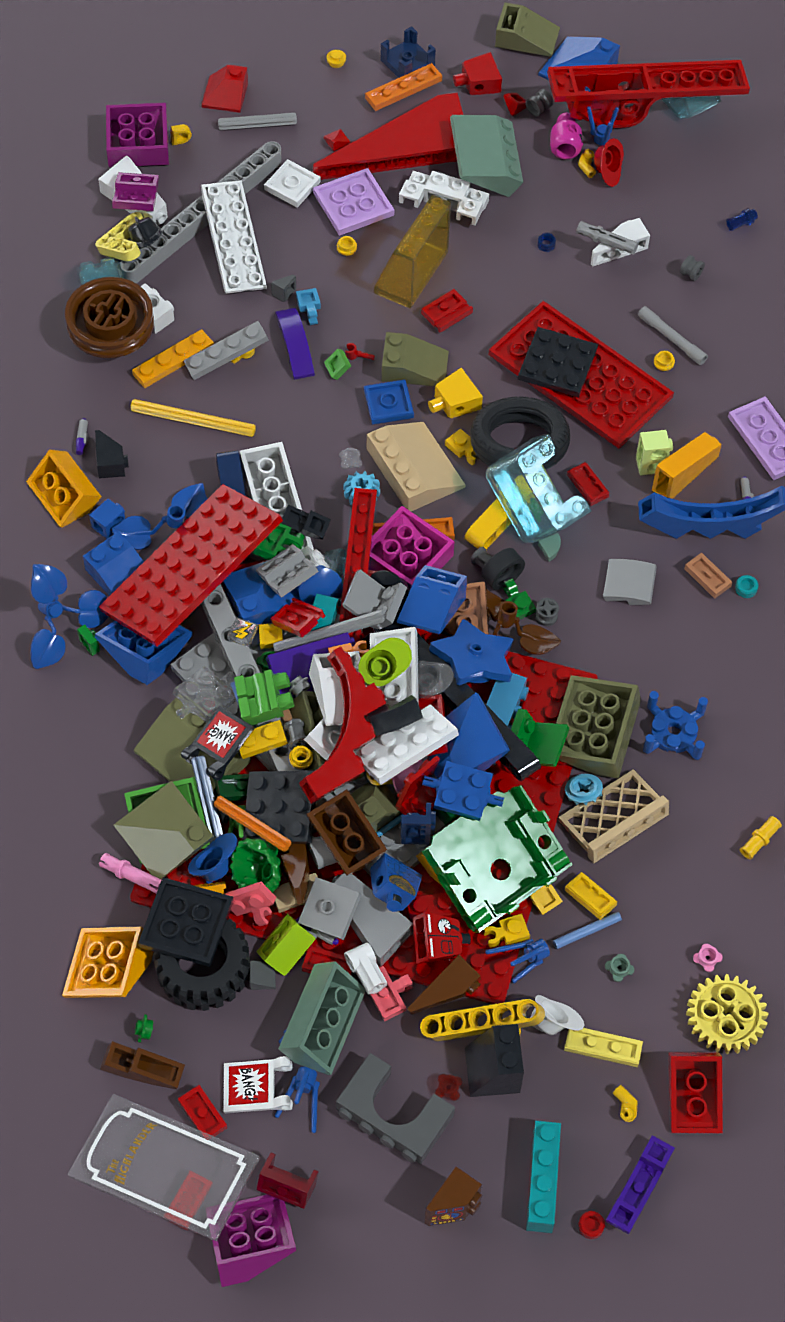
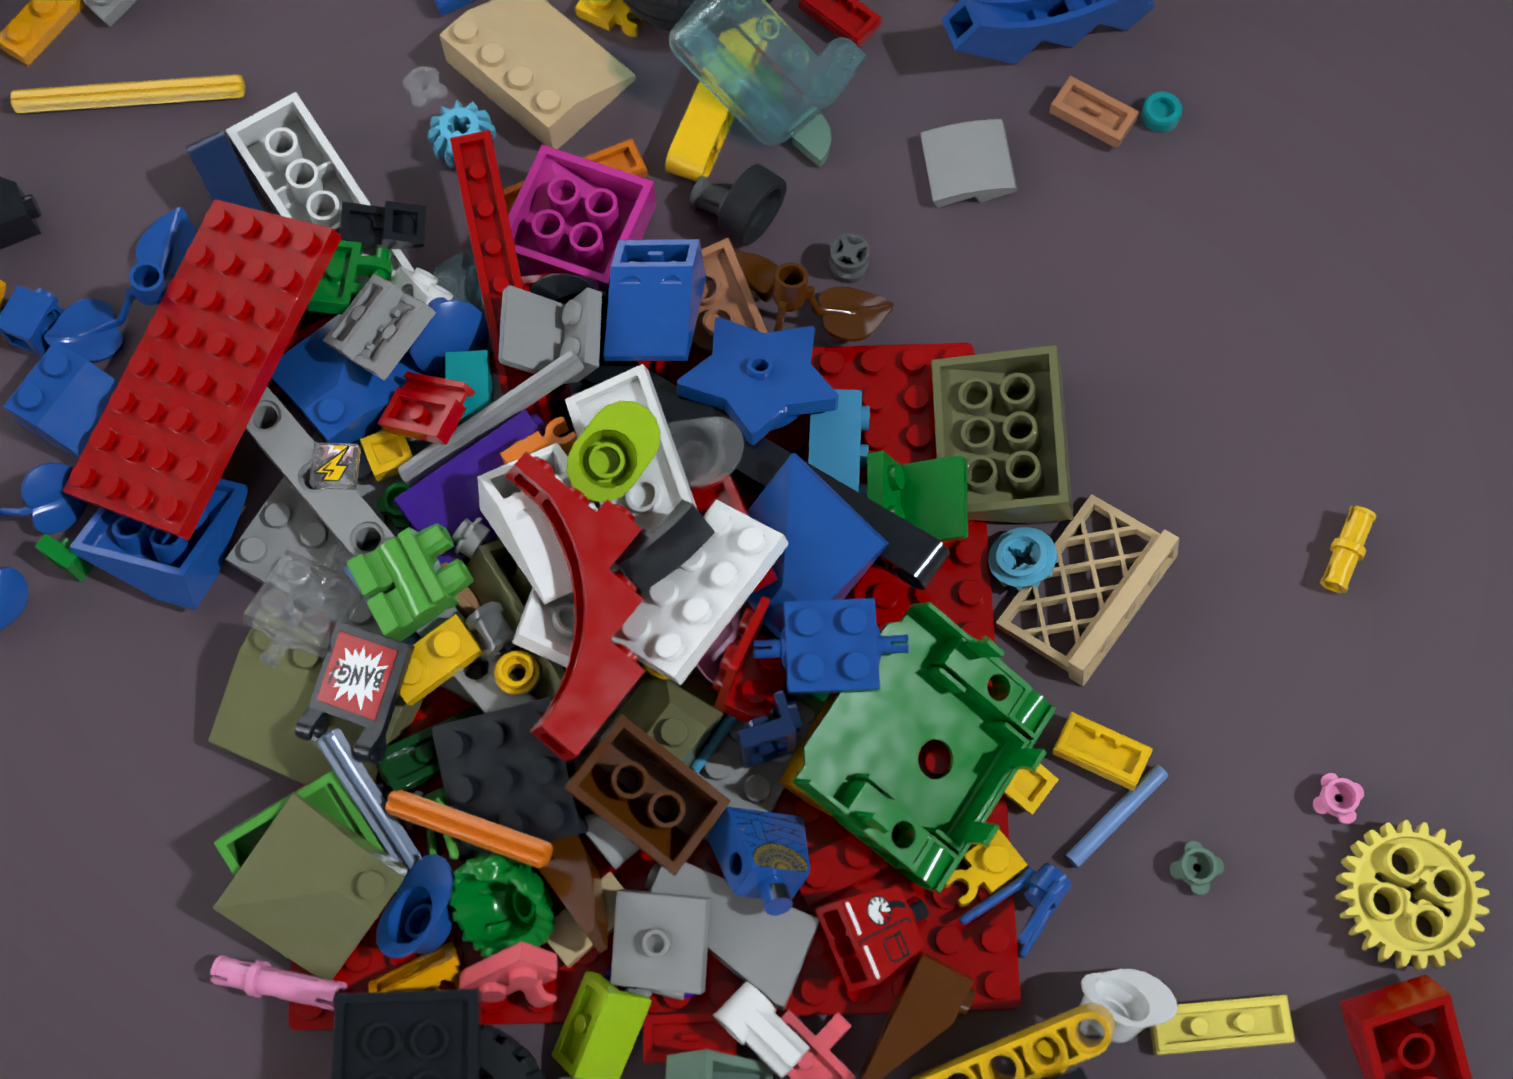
camera: 15 degrees left, 10 degrees up
(522, 600) = (795, 249): green plate -> none
(678, 718) = (1147, 382): blue plate -> none

